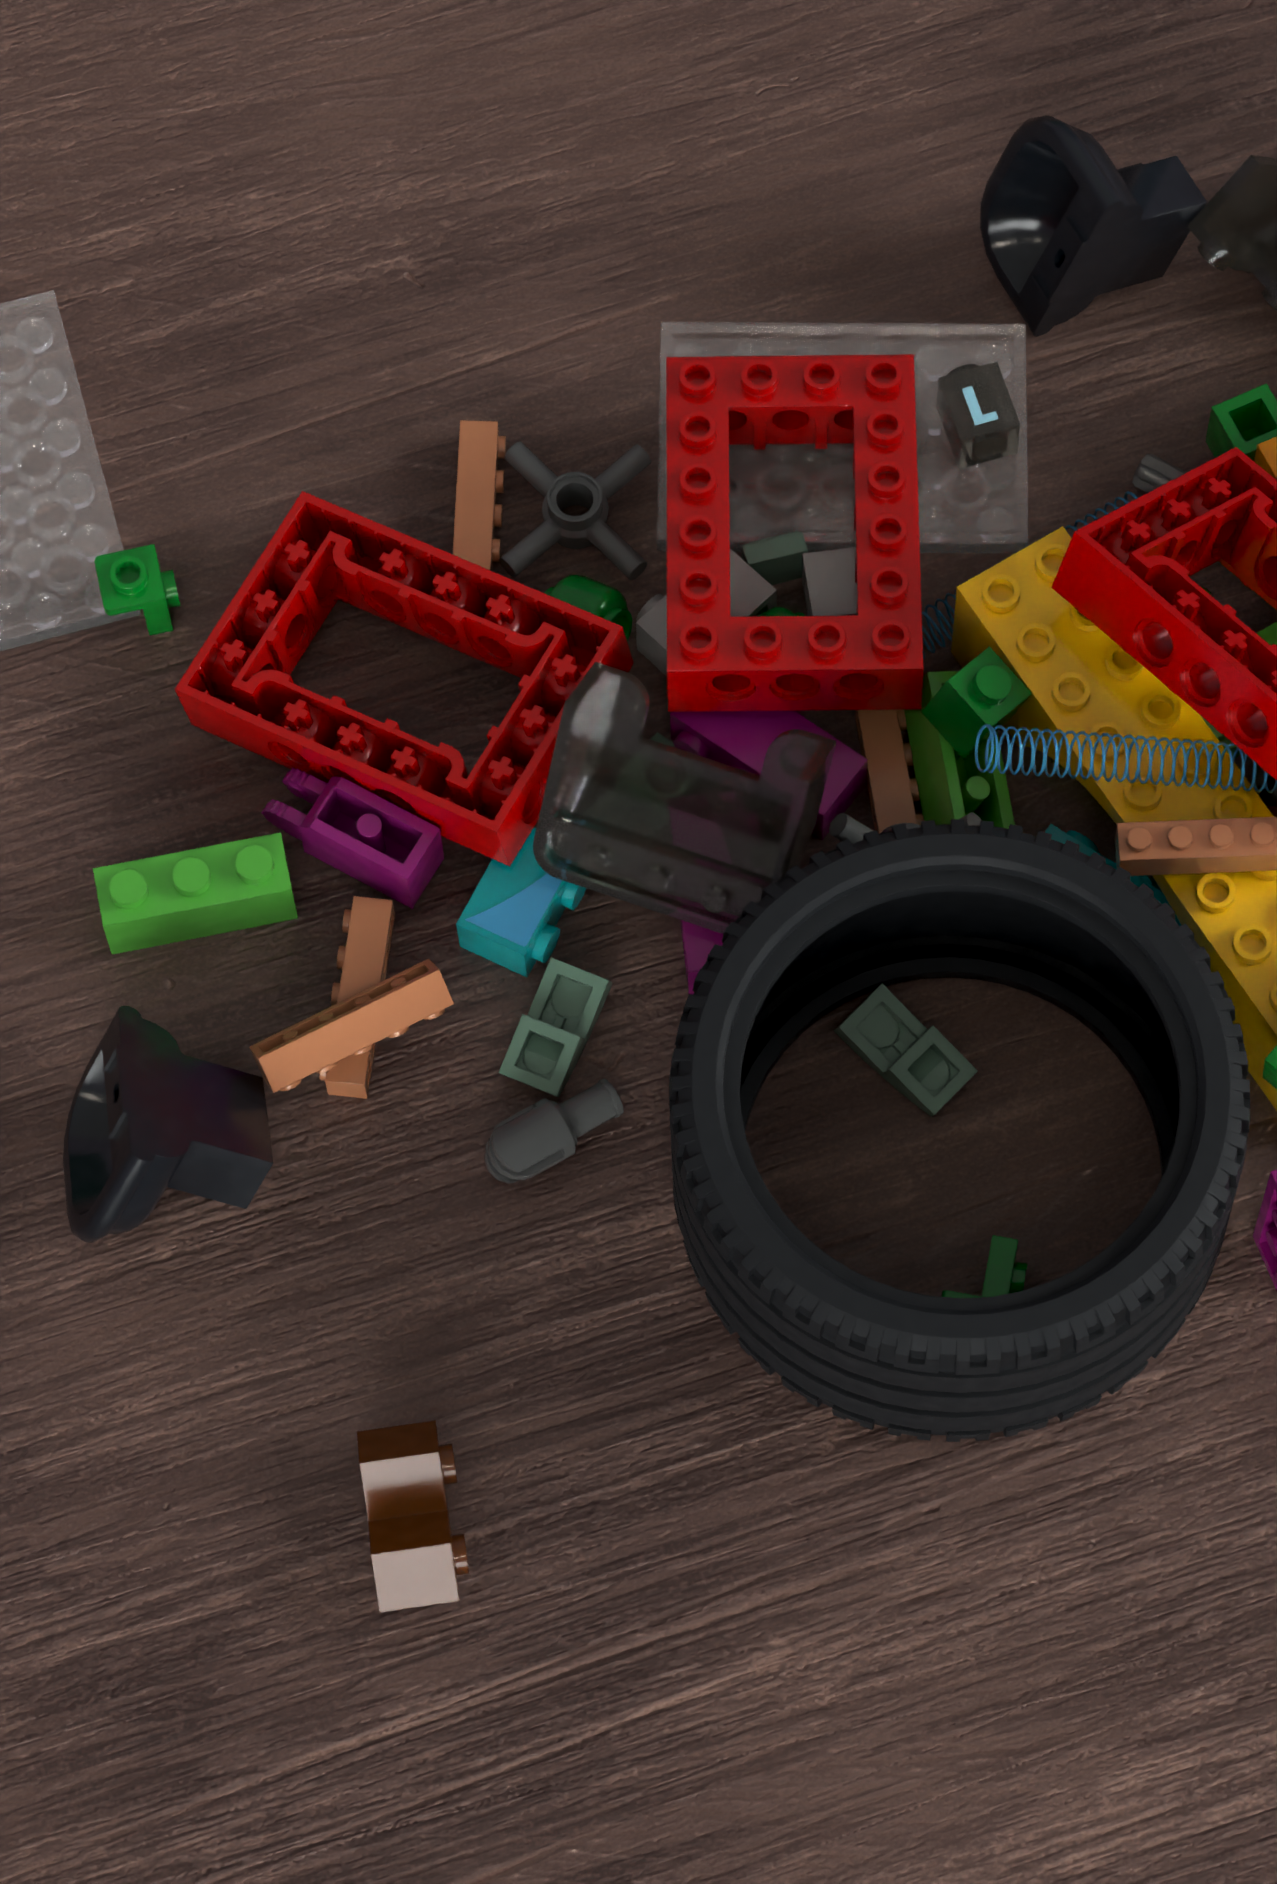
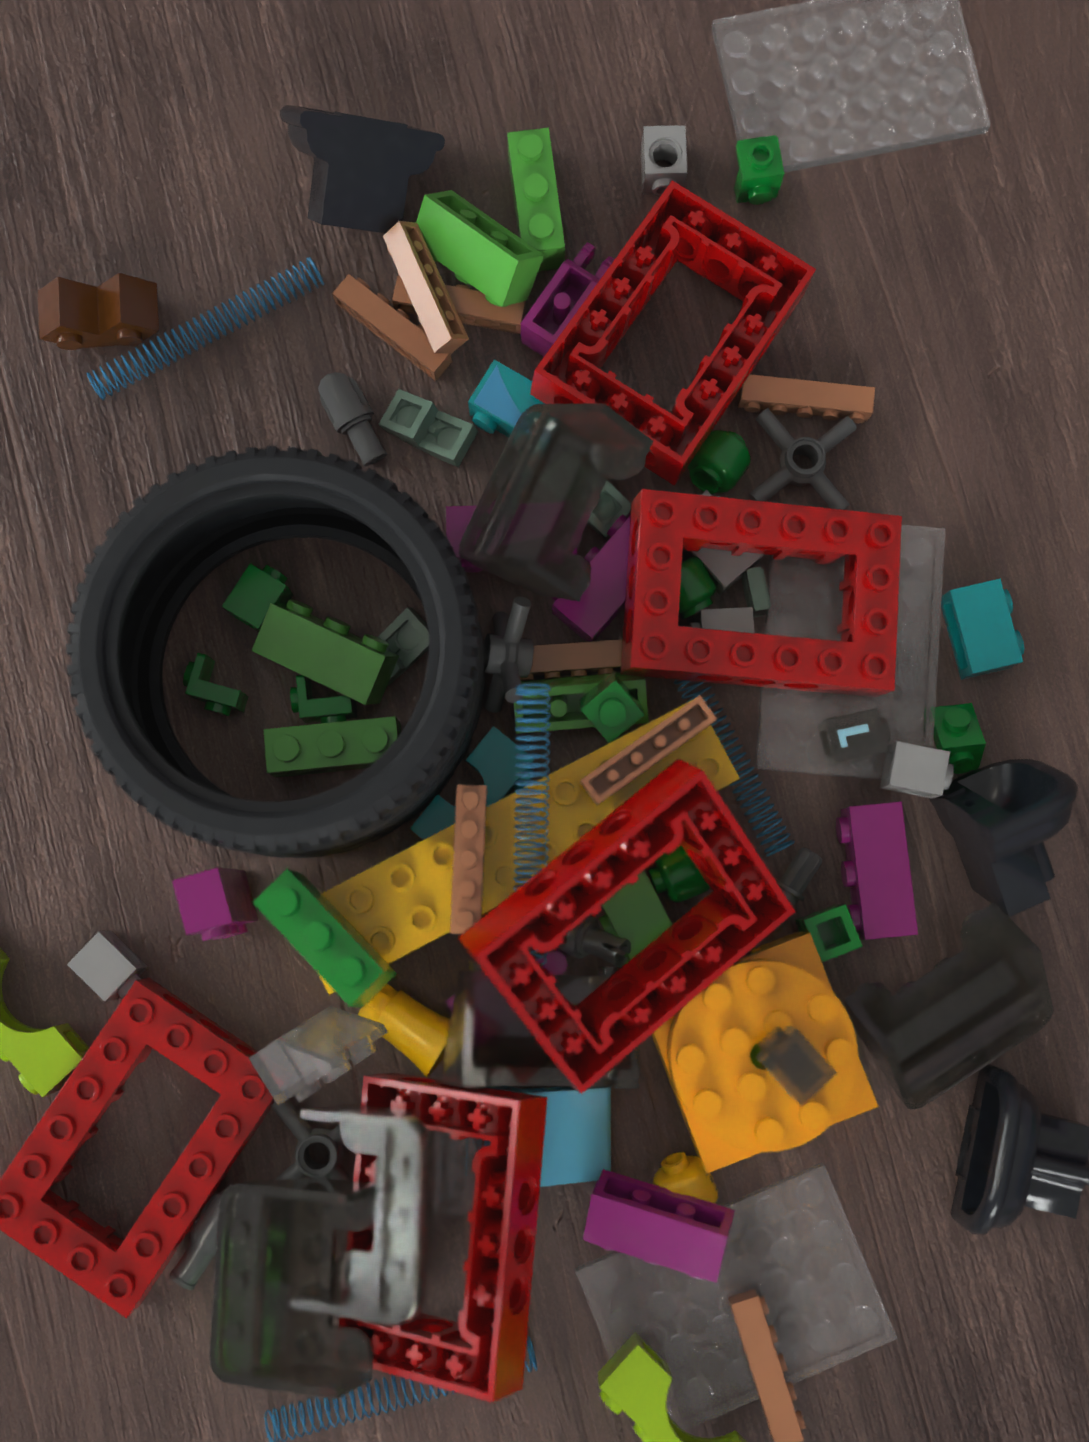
camera: 90 degrees right, 15 degrees up
(105, 704) = (663, 144): none -> light grey brick
(287, 954) = (478, 248): none -> bright green brick
(399, 1092) = (390, 325): none -> nougat piece
(412, 1372) = (203, 319): none -> dark azure piece
(802, 271) = (982, 629): none -> teal brick
(848, 1230) = (254, 593): none -> green brick
(920, 1124) = (326, 651): none -> bright green brick
(958, 294) = (960, 734): none -> green bracket
(1005, 1122) = (321, 709): none -> green bracket
(1016, 333) = (916, 770): none -> light grey brick
(1044, 627) = (648, 750): none -> nougat piece
(1059, 1107) = (328, 746): none -> bright green brick
(1150, 383) = (877, 870): none -> magenta brick

